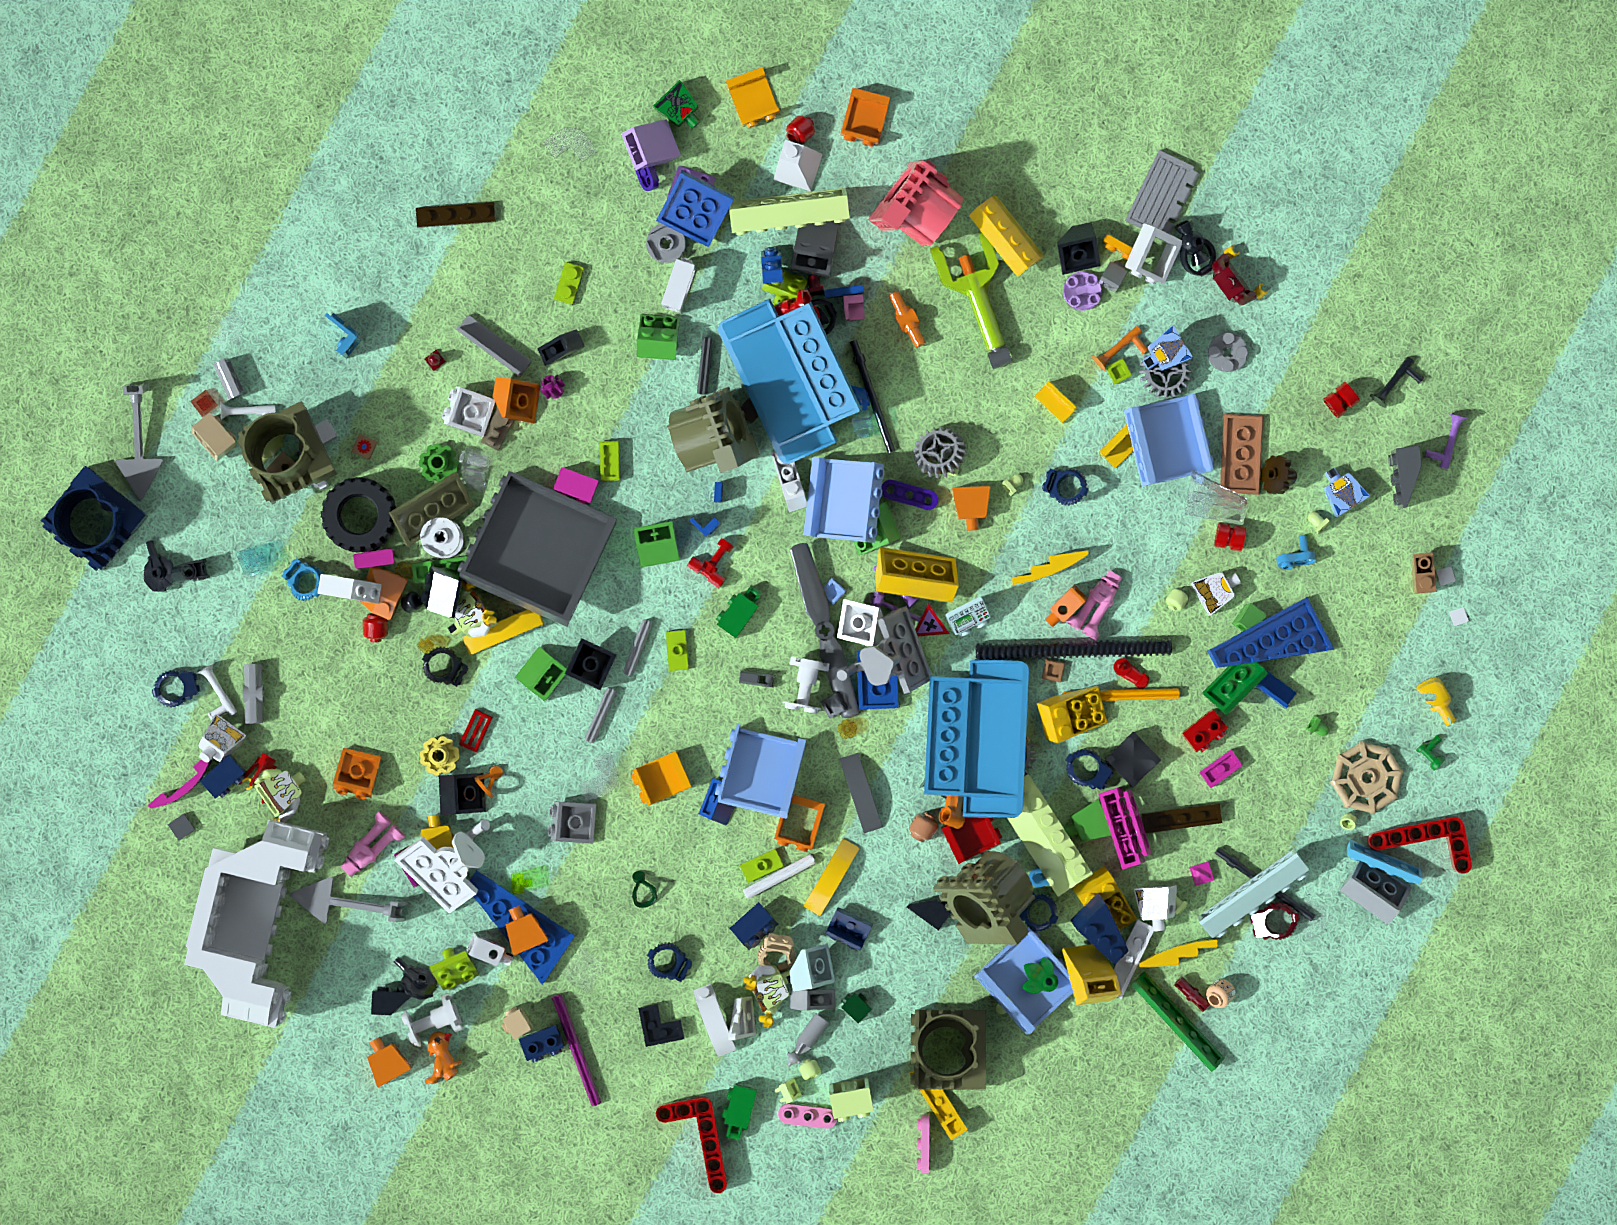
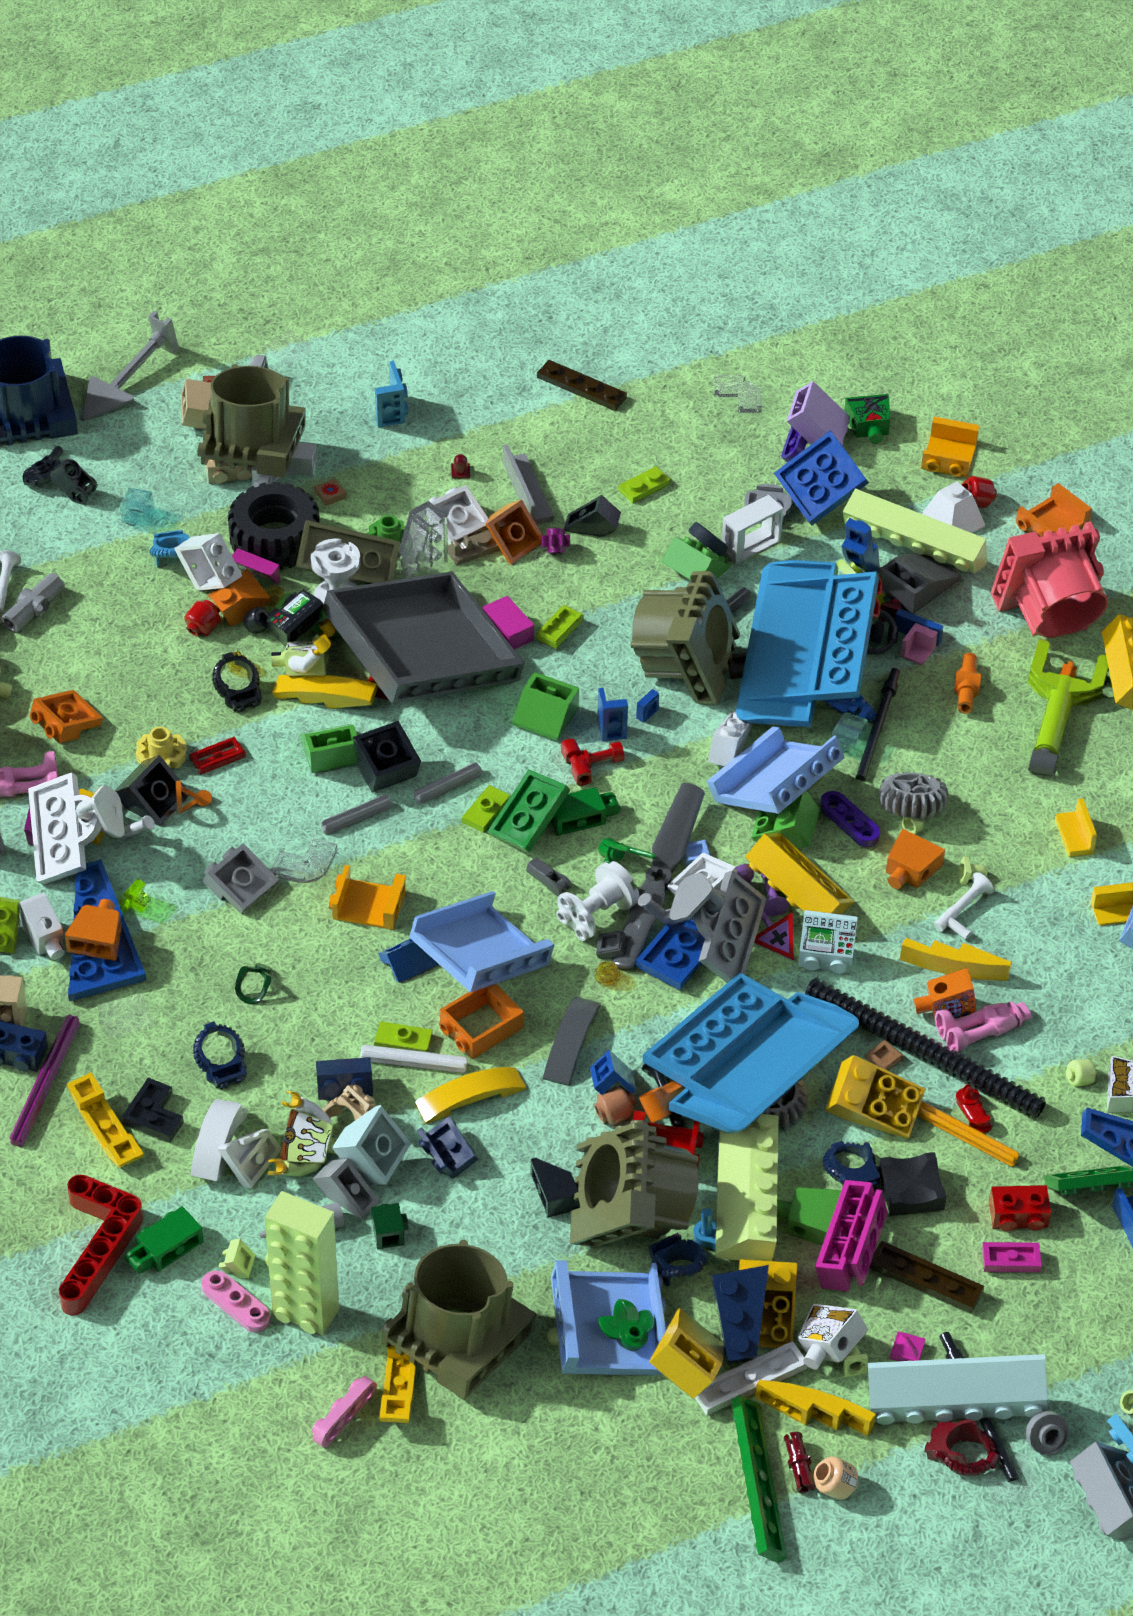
camera: 30 degrees right, 40 degrees down
(639, 1056) = (103, 1122): none -> yellow slope
(657, 318) = (708, 539): none -> black bush
(712, 643) = (528, 810): none -> green plate
(784, 632) = (615, 851): none -> green plant
(908, 809) = (608, 1071): none -> blue panel
(1022, 533) = (980, 885): none -> white piece
(1059, 476) = (1023, 893): dark blue piece -> none
(1316, 879) = (1047, 1432): none -> light grey plate

